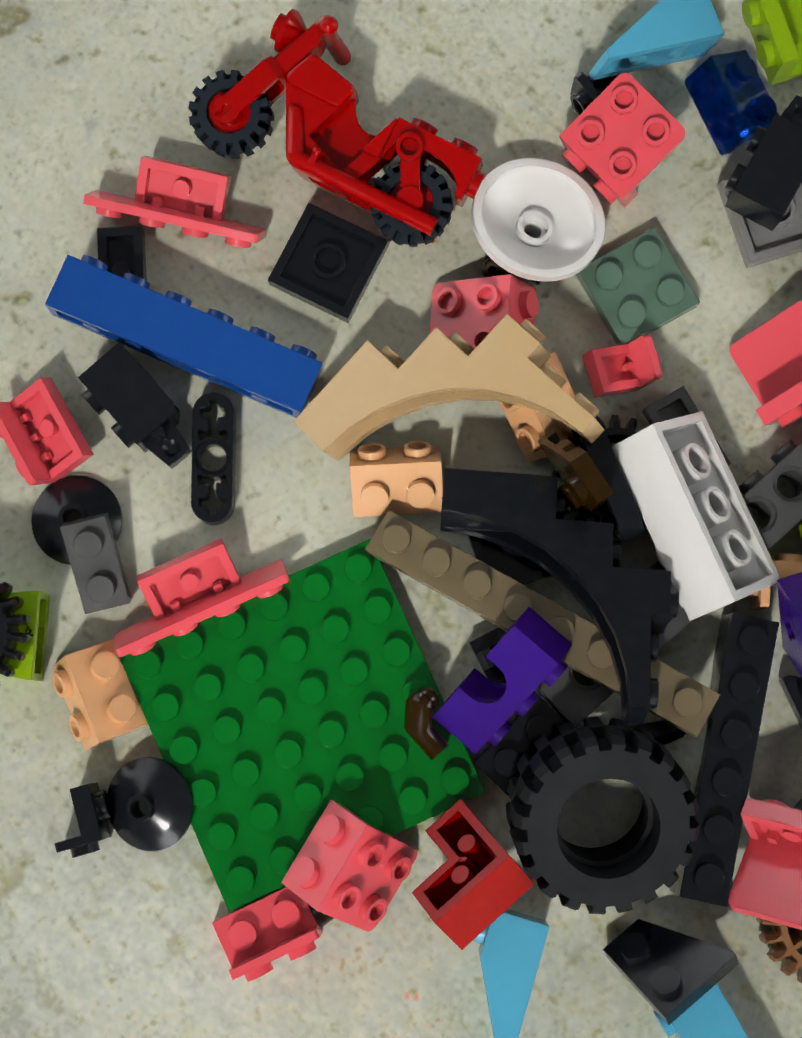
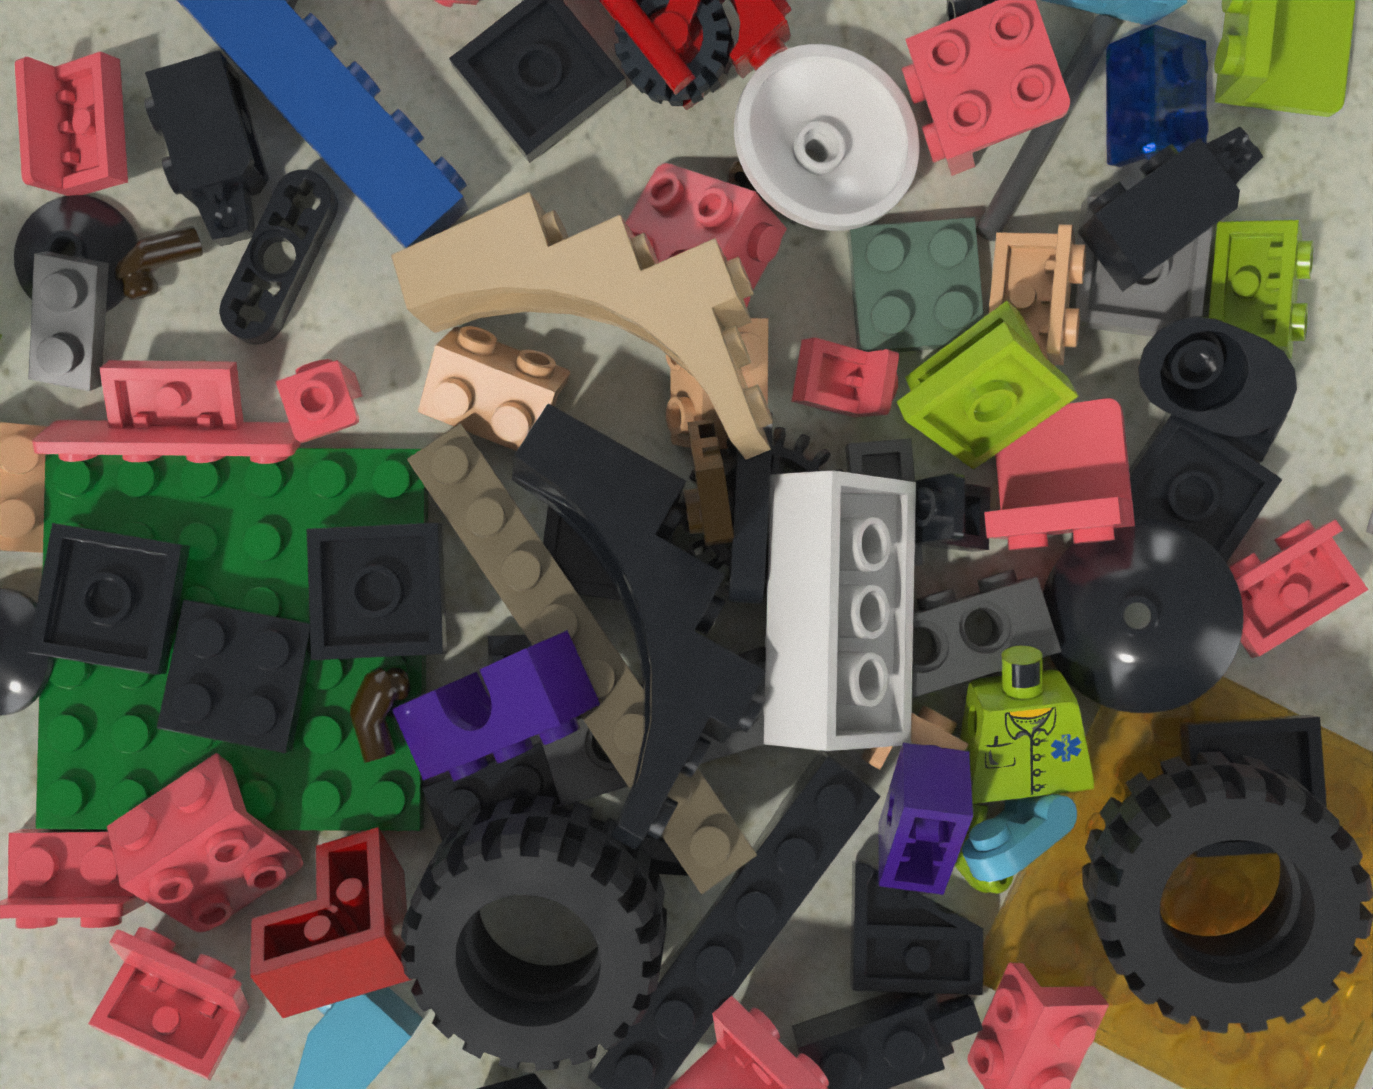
camera: 20 degrees right, 5 degrees up
(130, 493) = (152, 253): none -> dark brown arm
(213, 729) = (108, 599): none -> black plate
(290, 536) = (320, 399): none -> coral bracket
(320, 742) = (236, 676): none -> black plate
(377, 979) = (171, 1004): none -> coral bracket
(387, 643) = (376, 591): none -> black plate
(671, 163) = (1042, 137): none -> dark grey bar
(716, 261) = (1037, 278): none -> light nougat bracket
(716, 331) = (985, 388): none -> lime bracket
(734, 421) = (951, 513): none -> black bracket

